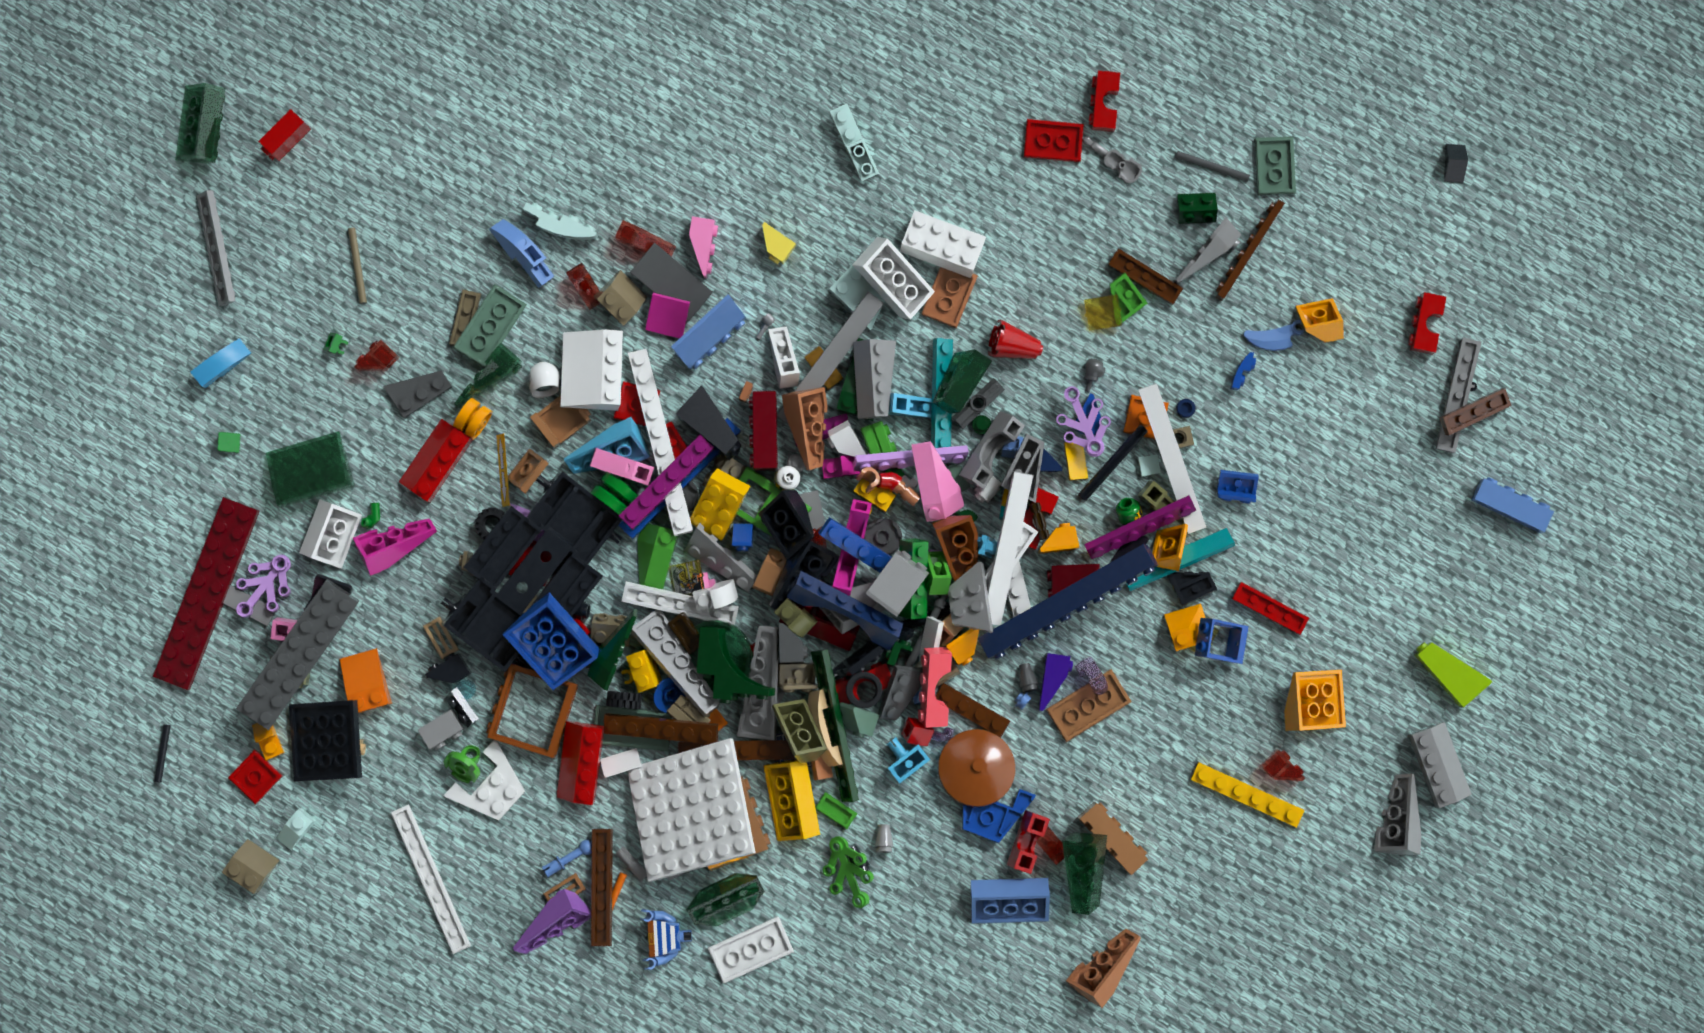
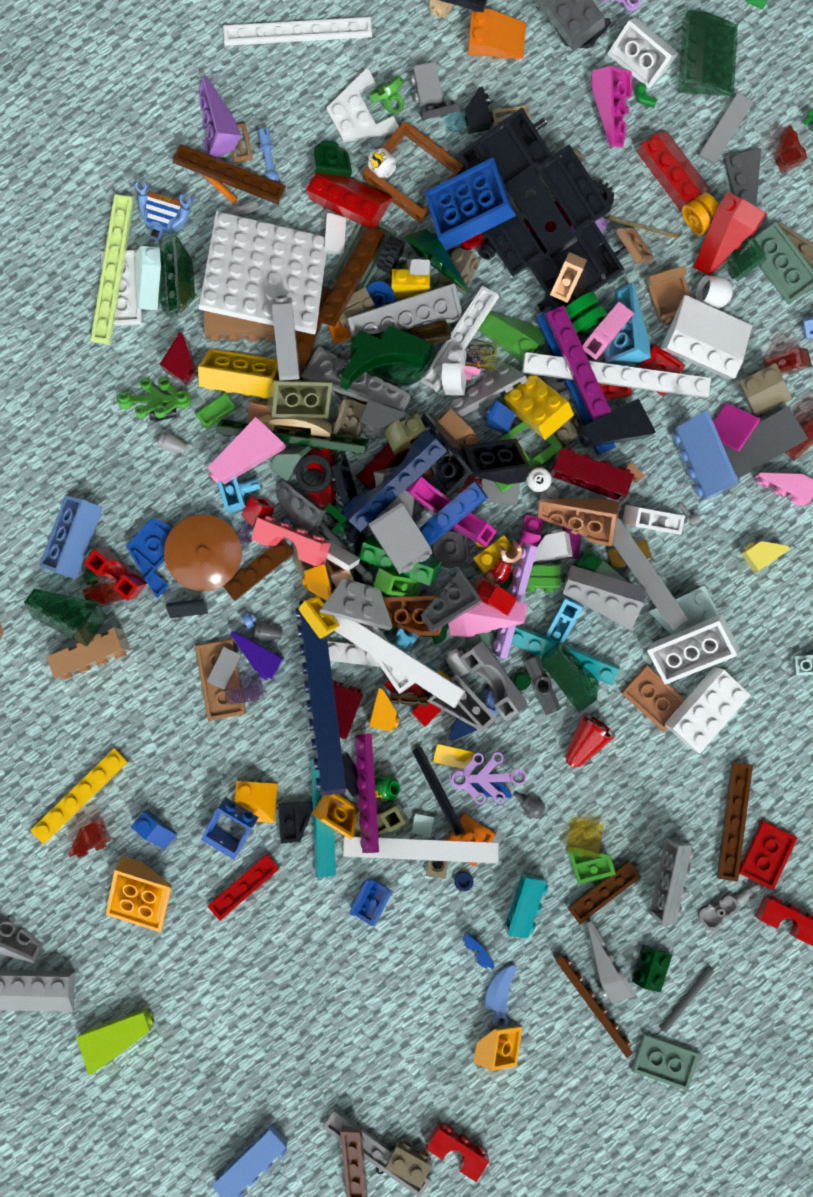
camera: 110 degrees right, 0 degrees up
(375, 426) = (725, 129): none -> light grey tile
(483, 388) = (730, 226): none -> red wedge
(540, 741) = (381, 162): none -> white head
(550, 794) = (331, 159): none -> dark green tile
(589, 521) = (568, 277): none -> light nougat slope
(628, 668) = (418, 266): none -> slope
(732, 926) = (147, 277): none -> light aqua slope
(737, 964) = (112, 269): none -> yellowish green tile
(752, 760) = (285, 338): none -> light grey slope
(804, 860) = (179, 360): none -> dark red slope
(865, 758) = (246, 451): none -> bright pink slope
(917, 476) = (496, 597): none -> red slope
(937, 514) = (451, 603): none -> dark grey wing
(1002, 629) = (320, 622): none -> yellow slope
(1034, 181) = (734, 821): none -> reddish brown plate
(1034, 762) = (187, 608): none -> black slope
(1041, 865) = (90, 578): none -> dark green plate
(1077, 705) = (224, 668): none -> light grey tile
(1111, 220) = (671, 881): none -> light grey slope
(1185, 343) = (525, 905): none -> teal slope
(1251, 711) = (153, 830): none -> blue slope
(1455, 362) = (409, 1163): none -> dark tan bracket

